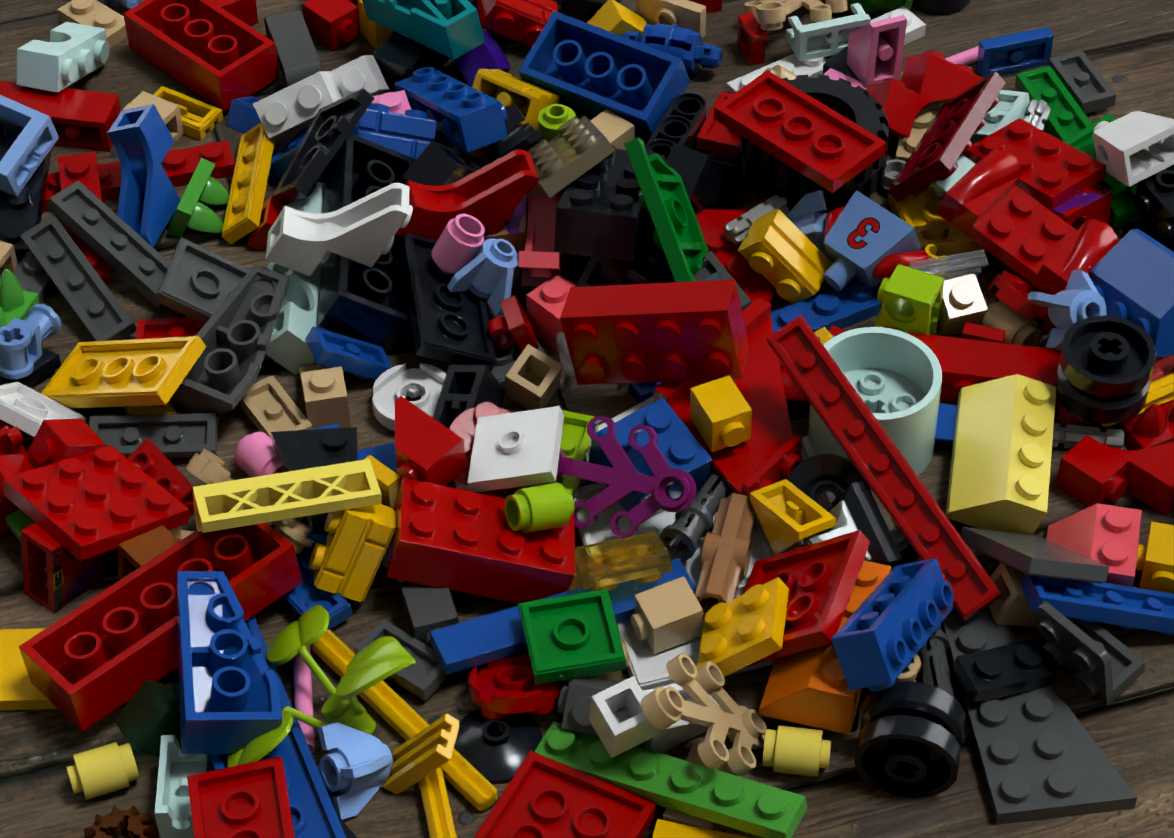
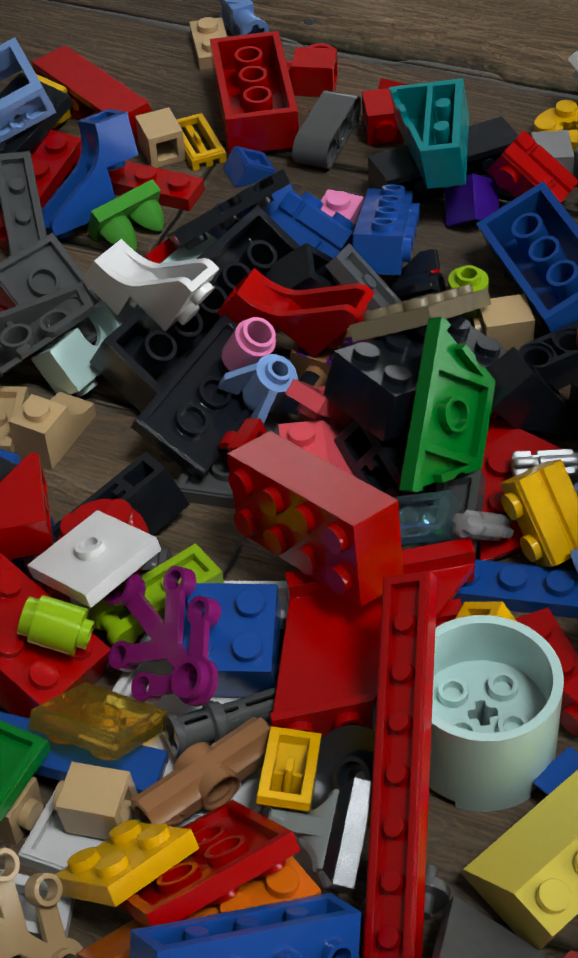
camera: 40 degrees right, 0 degrees up
(68, 57) = (119, 57): light aqua arch -> none
(248, 184) = (187, 212): yellow tile -> none
(302, 100) = (305, 169): white arch -> none
(354, 355) = (95, 401): blue plate -> none
(411, 382) = (94, 465): white plate -> none
(475, 150) = (351, 268): none -> dark grey plate
(510, 90) = (457, 242): yellow brick -> none
(533, 379) = (211, 505): tan brick -> none
(720, 413) = (310, 630): yellow brick -> none
(753, 286) = (482, 525): none -> light grey axle

